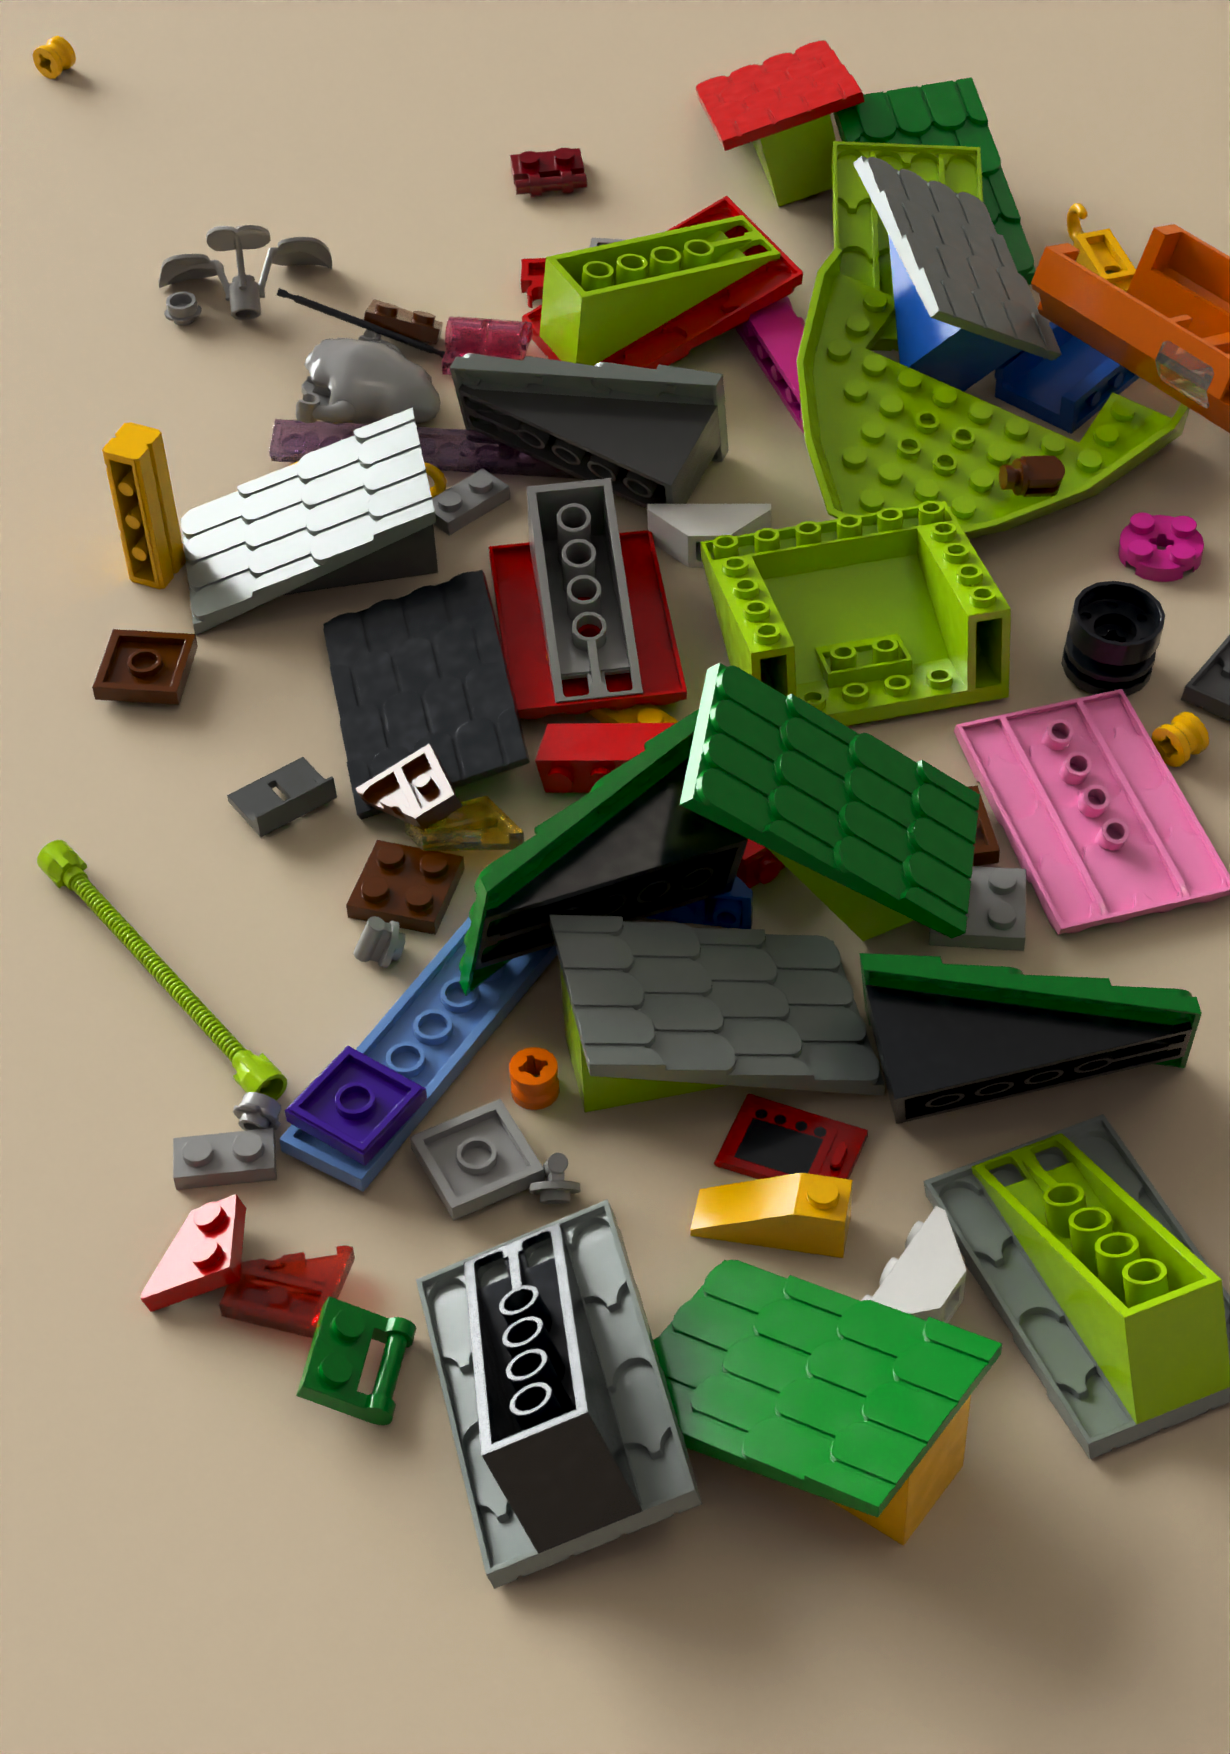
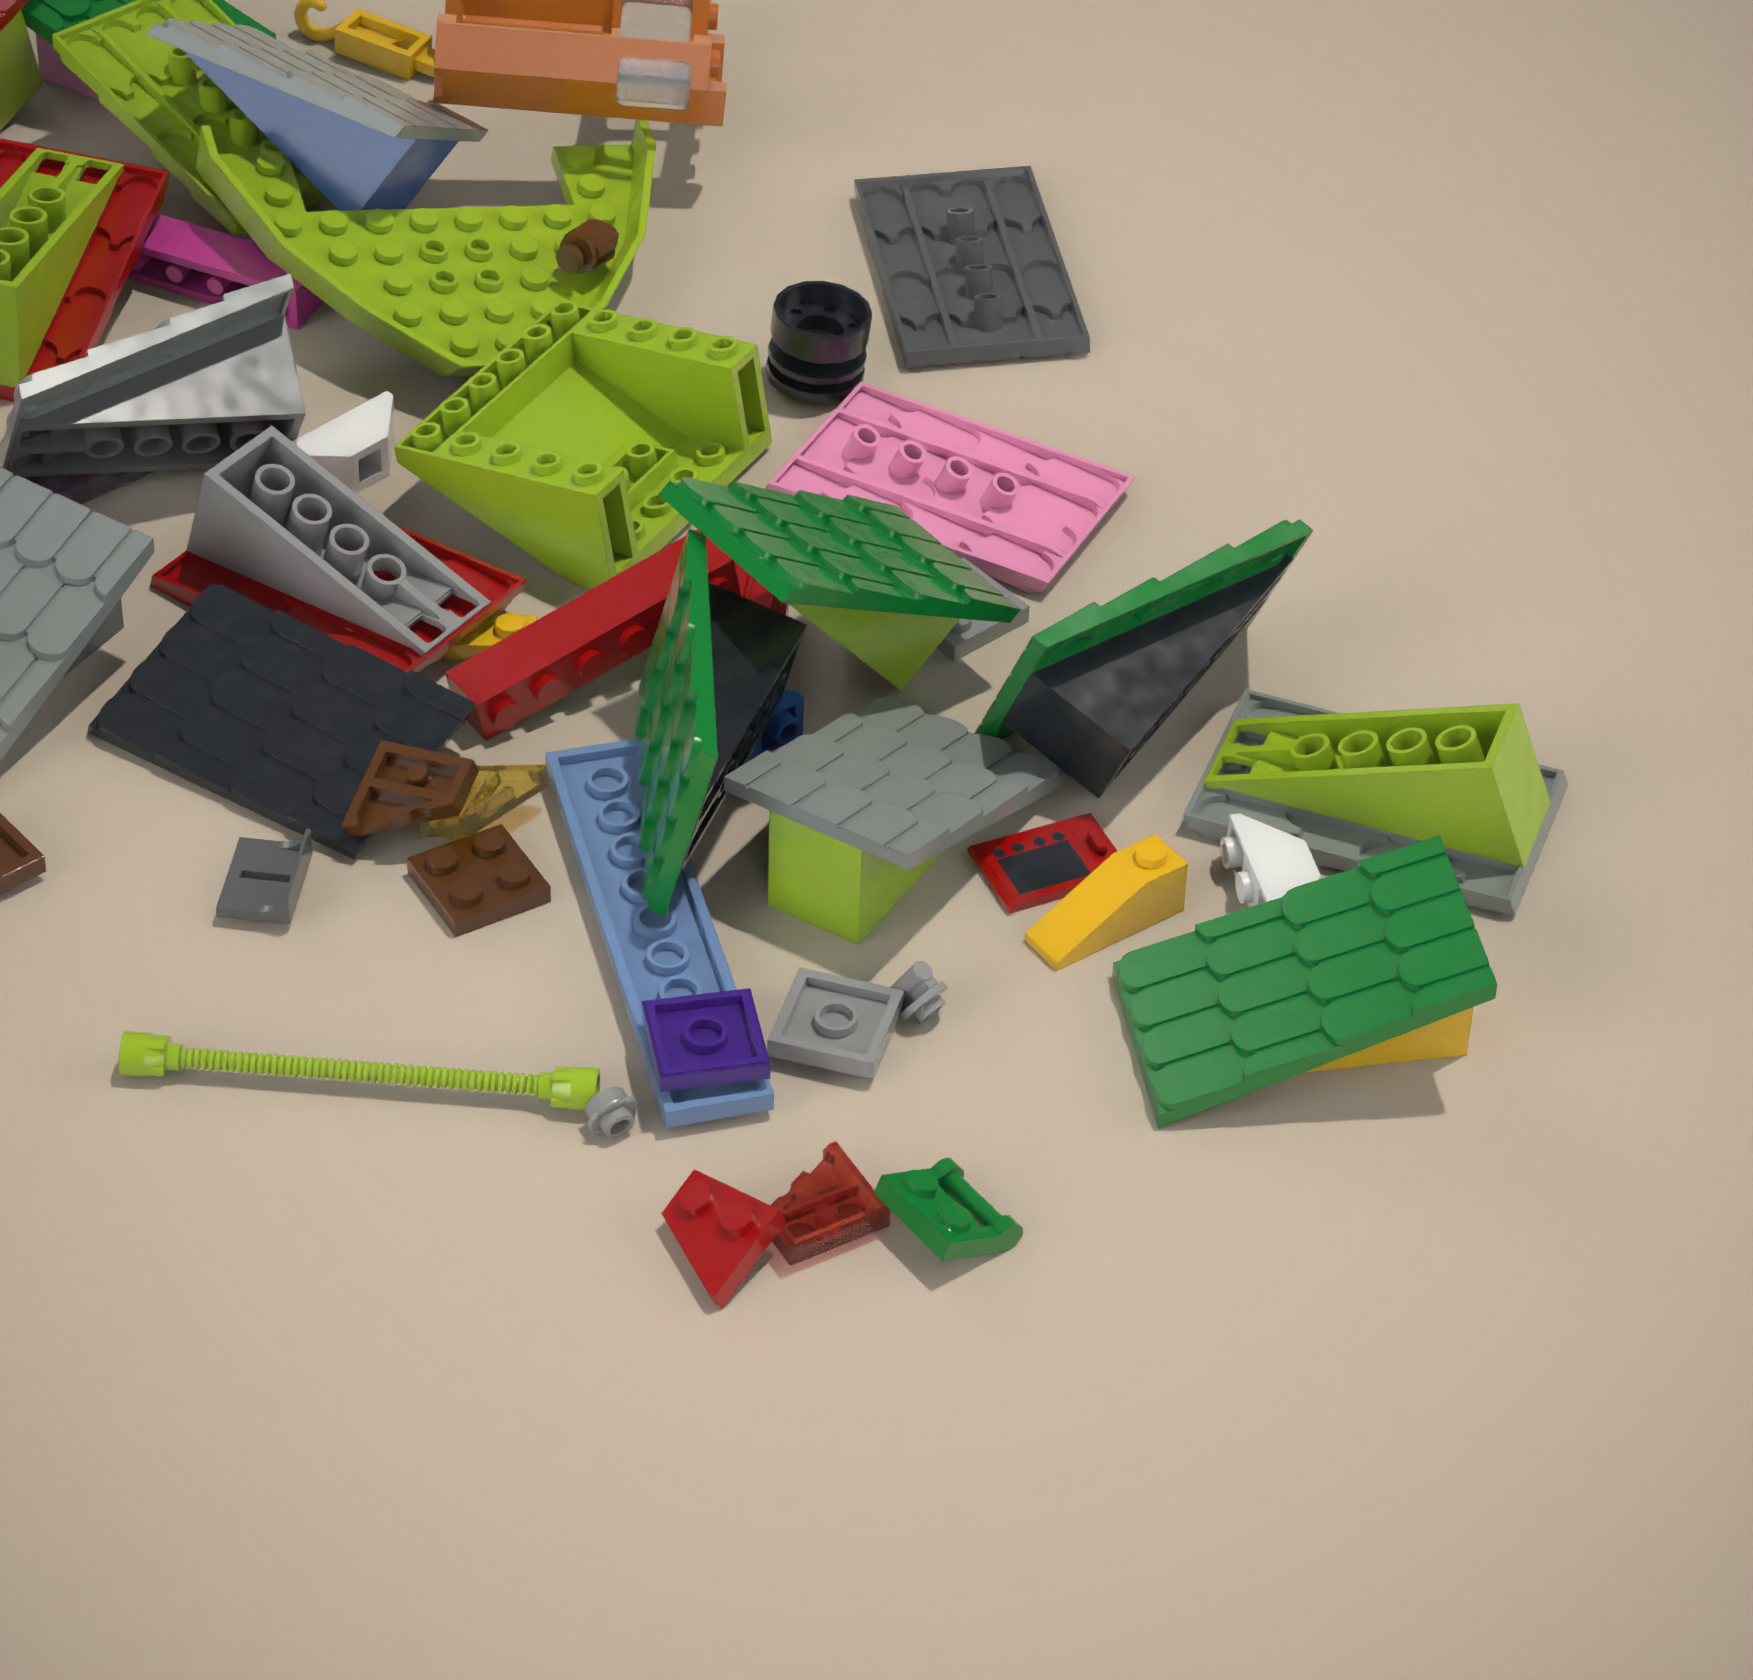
camera: 50 degrees left, 5 degrees down
(224, 1159) = (626, 1165): light grey plate -> none
(380, 942) = (531, 929): light grey plate -> none
(533, 1091) = (798, 939): orange wheel -> none
(555, 1395) = (1129, 1116): piece -> none
(1064, 389) = (489, 171): blue panel -> none
(1177, 534) = (739, 257): dark pink plate -> none
(1180, 739) = (961, 382): yellow wheel -> none

